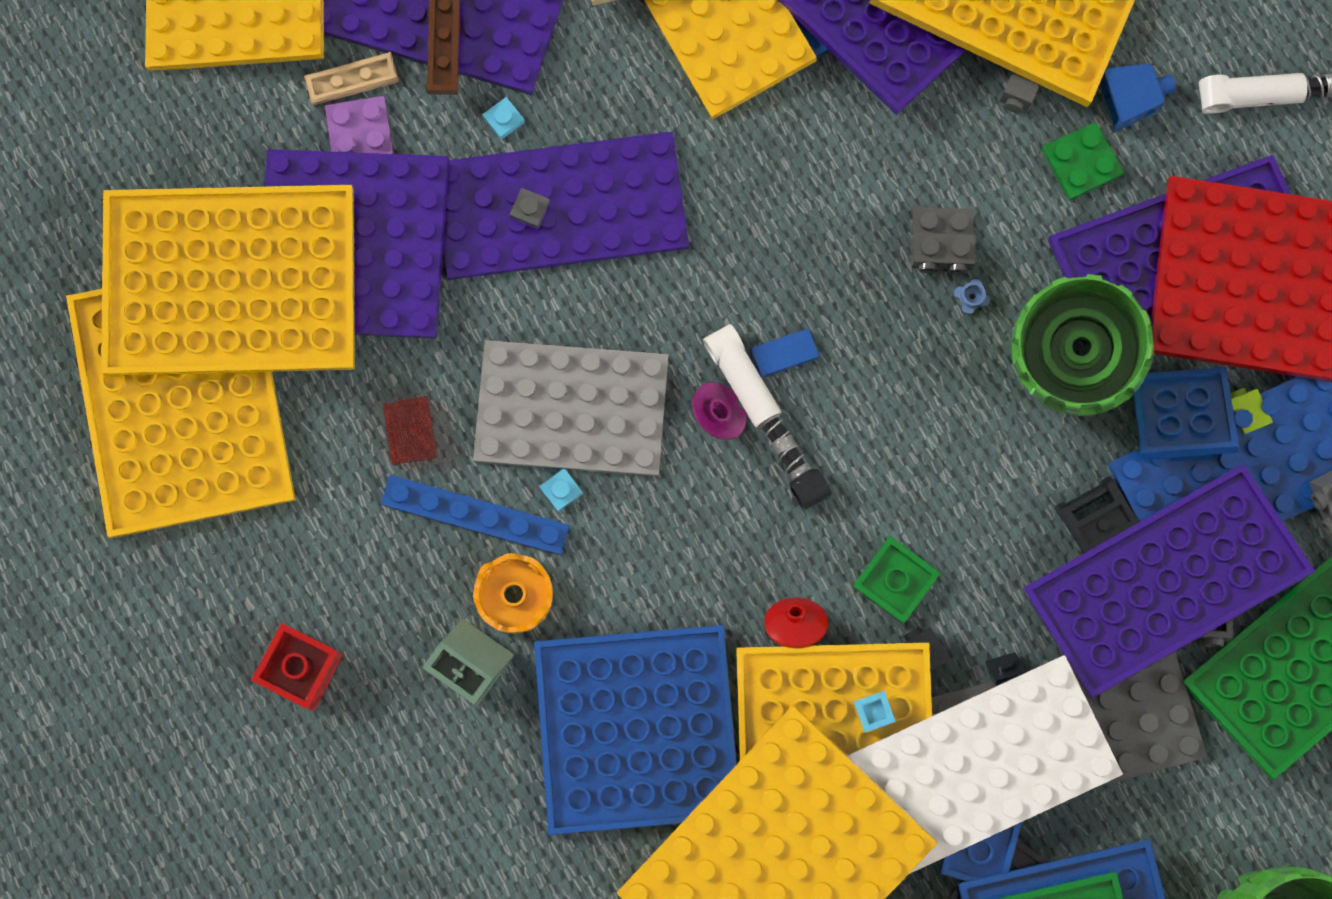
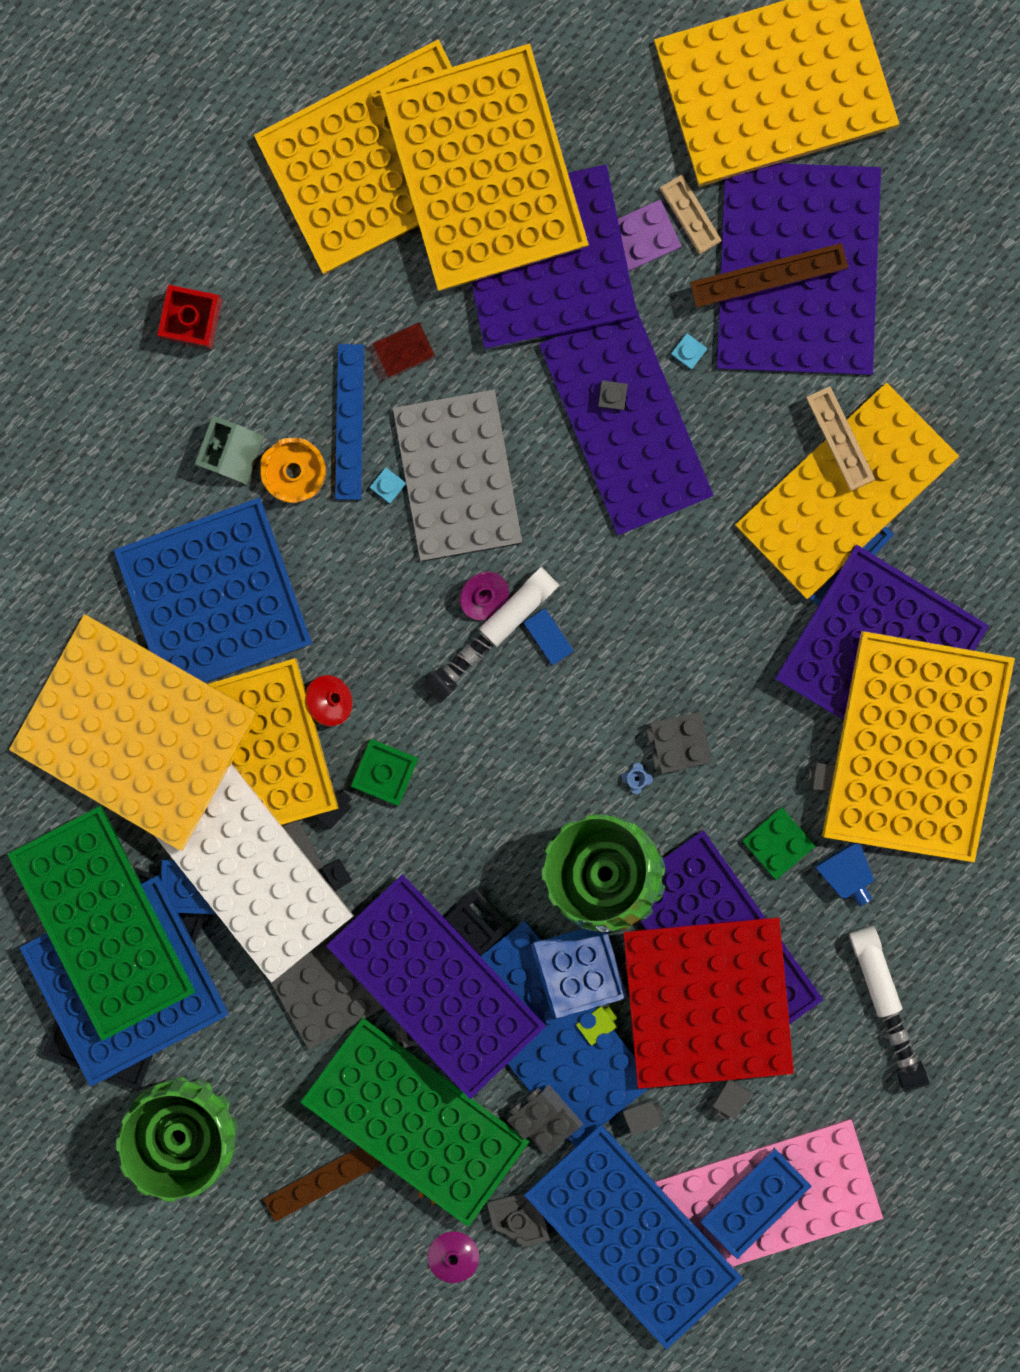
camera: 80 degrees right, 10 degrees up
(874, 711) = (270, 778): medium azure plate -> none

